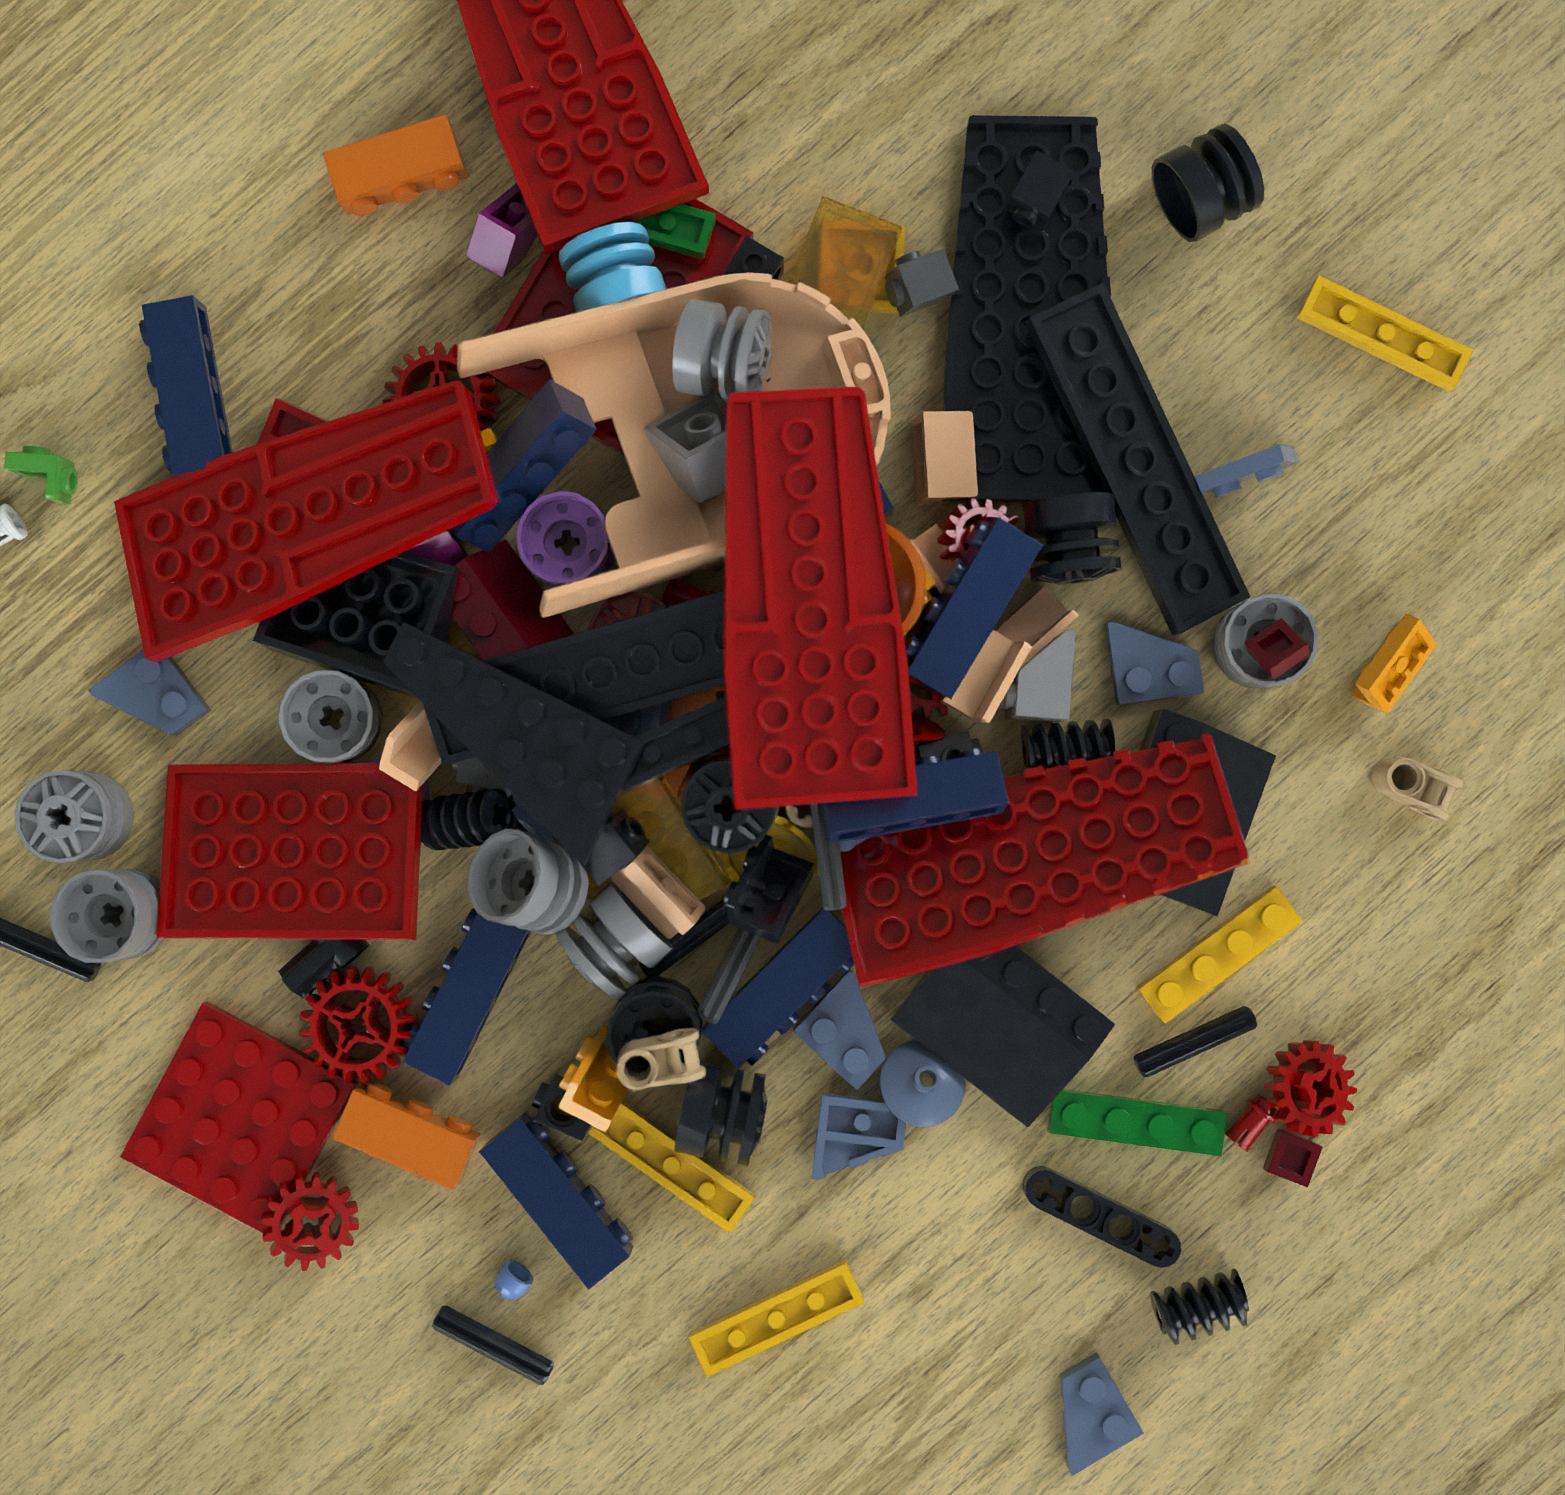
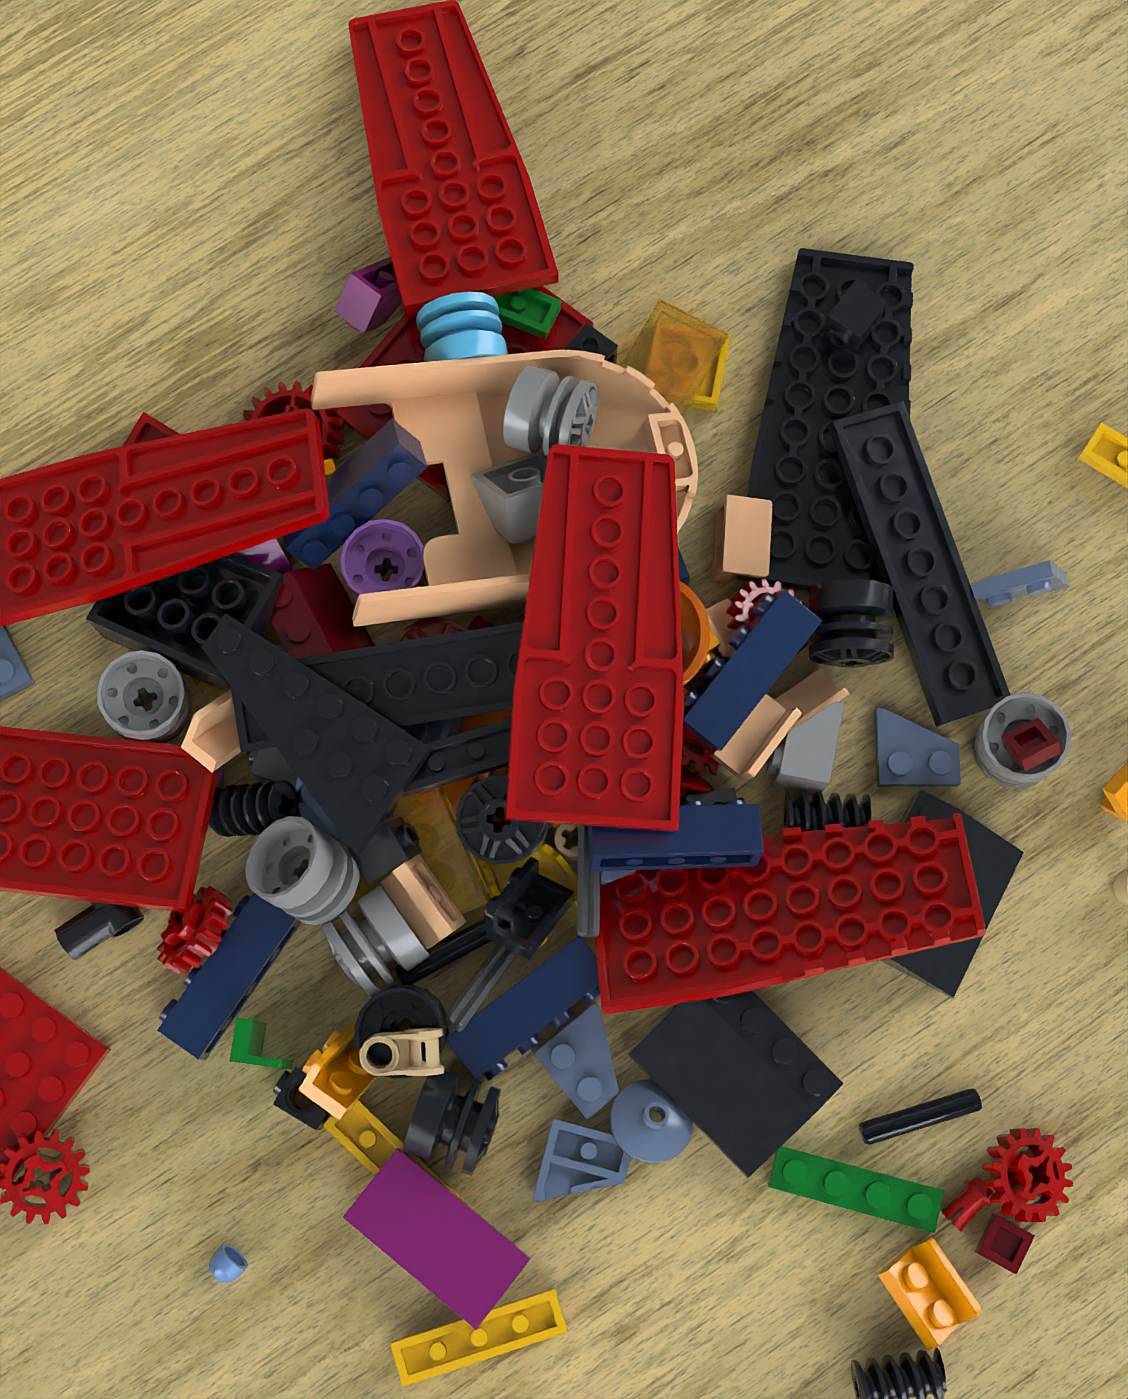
camera: 10 degrees right, 10 degrees down
(186, 383) = (65, 388): dark blue brick -> none
(339, 1055) = (108, 1005): red gear -> none
(396, 166) = (284, 229): orange brick -> none
(407, 1134) = (150, 1104): orange brick -> none
(428, 958) = (195, 932): none -> red gear
(493, 1345) = (198, 1327): black axle -> none
(500, 1070) = (248, 1045): none -> green panel
(558, 1199) = (283, 1187): dark blue brick -> none
(720, 1230) = (437, 1238): none -> magenta tile
(920, 281) = (738, 382): dark grey brick -> none
(1099, 1220) = (813, 1275): black beam -> none
(1208, 182) = (1007, 328): black wheel -> none
(1219, 954) = (951, 1035): yellow plate -> none
(1221, 1216) = (929, 1292): none -> light orange bracket

